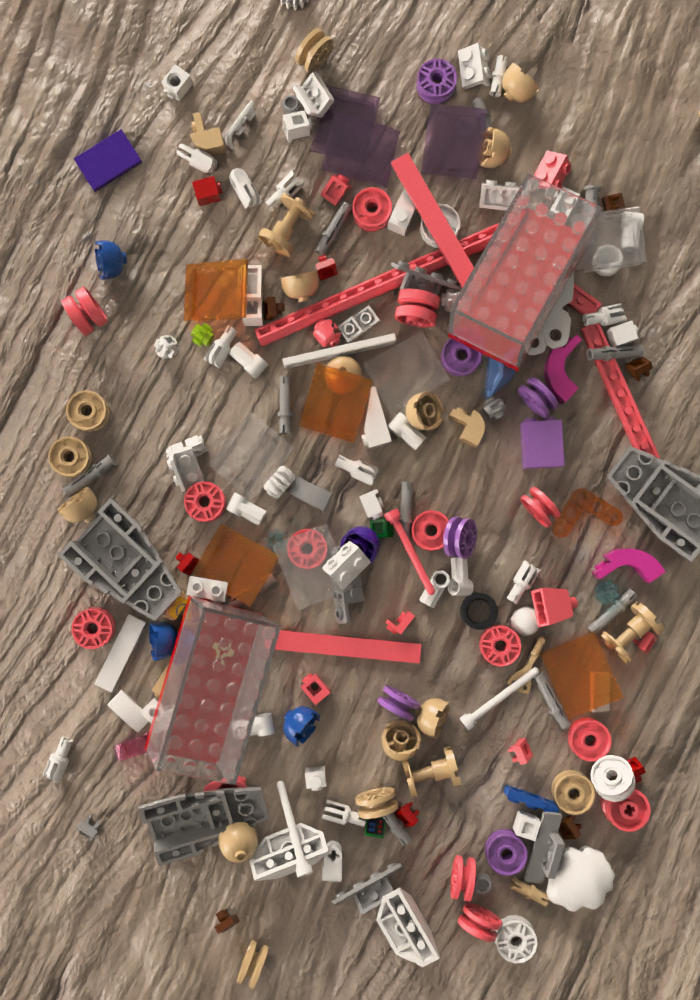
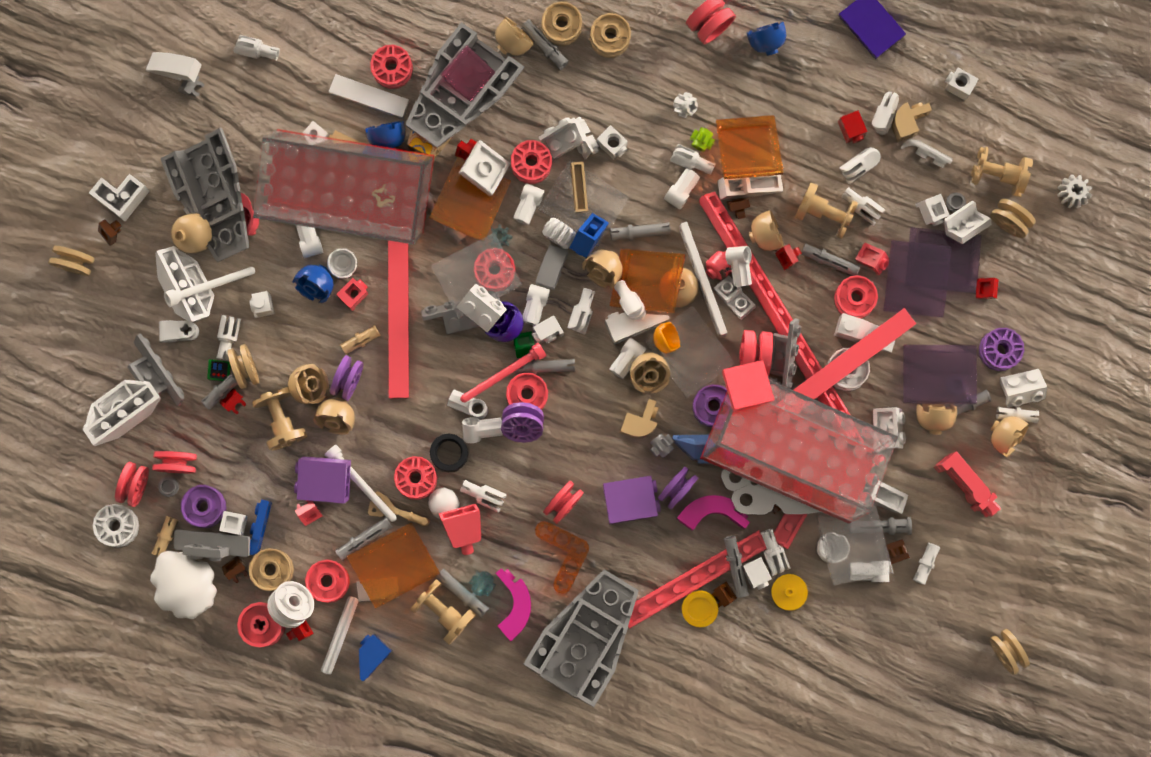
camera: 85 degrees right, 5 degrees down
(67, 844) = (174, 66): none -> white slope
(110, 554) = (467, 73): none -> clear pink tile
(128, 711) = (311, 110): white slope -> none
(131, 747) = (274, 116): clear pink leg -> none
(186, 421) = (608, 135): none -> white brick
(196, 907) = (120, 200): none -> white brick
(206, 547) = (484, 168): none -> white tile
(207, 589) = (442, 174): white bracket -> none
(236, 458) = (579, 187): none -> tan piece
(274, 40) = (1009, 173): none -> tan piece
(284, 453) = (588, 235): none -> blue slope
(284, 696) = (342, 263): none -> white hair
(317, 443) = (603, 267): none -> tan cylinder
(327, 312) = (739, 260): none -> white piece
(342, 512) = (536, 300): none -> white piece
(355, 421) = (630, 302): none -> white arm
(360, 685) = (360, 340): none -> tan pin
(377, 86) = (987, 288): none -> red tile
(393, 391) = (666, 338): none -> light orange hair
(404, 620) = (430, 376): coral bracket -> none
(469, 308) = (748, 385): none -> coral tile
(493, 734) = (323, 479): none -> medium lavender brick
(553, 168) = (920, 481): bracket -> none
(563, 125) = (967, 480): none -> coral hips
(628, 178) = (926, 563): none -> white pin
(639, 732) = (339, 635): none -> white axle
(640, 307) = (789, 592): none -> yellow piece
(646, 642) = (434, 632): coral tile -> none
(649, 391) = (700, 608): none -> yellow piece
(662, 703) = (371, 655): none -> blue slope

